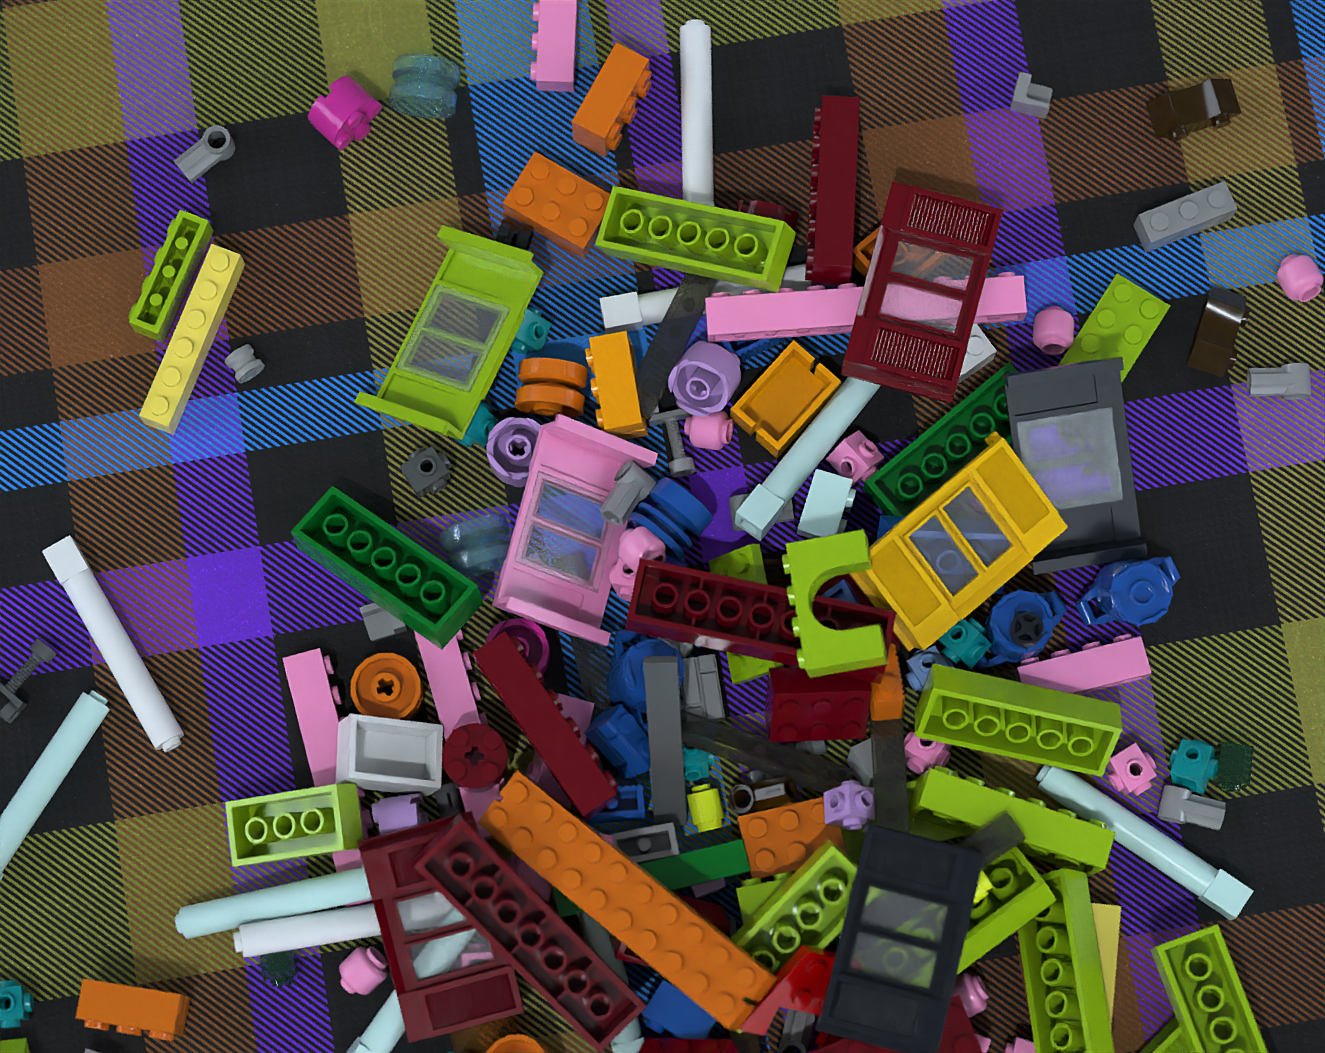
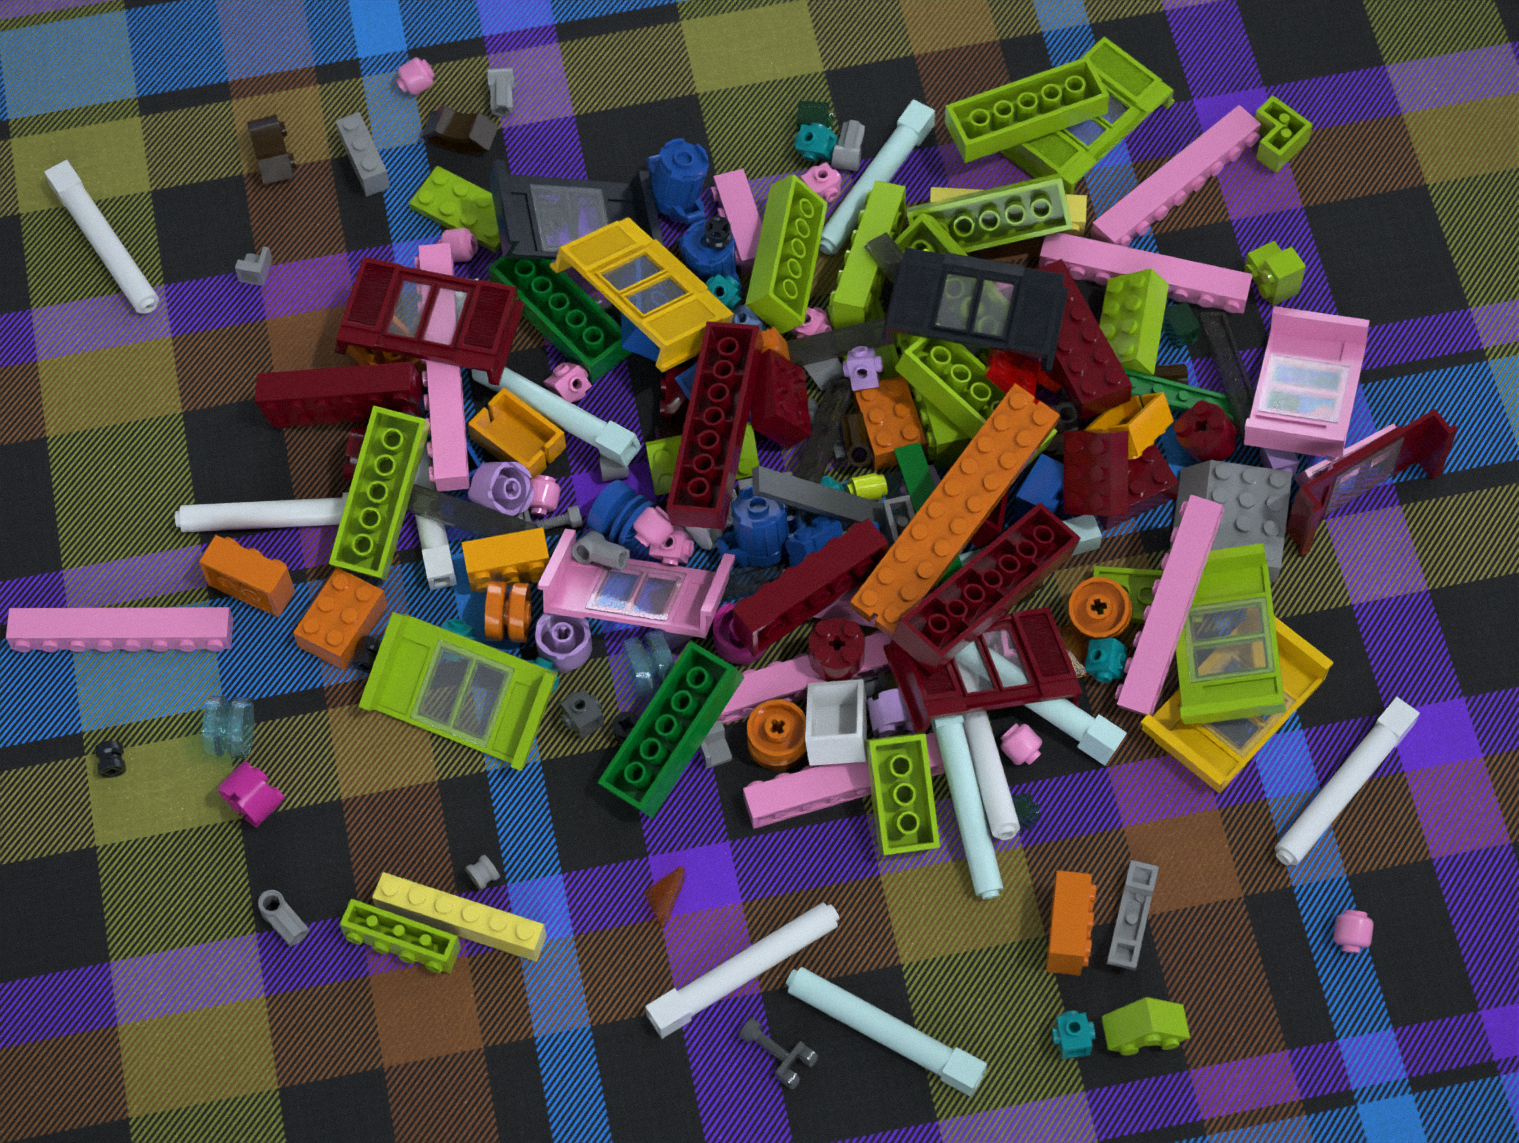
camera: 90 degrees left, 15 degrees down
(206, 560) = (664, 895): none -> clear orange slope
(410, 527) = (624, 718): none -> black wheel
(811, 565) = (739, 365): lime arch -> none
(825, 505) = (612, 396): light aqua brick -> none

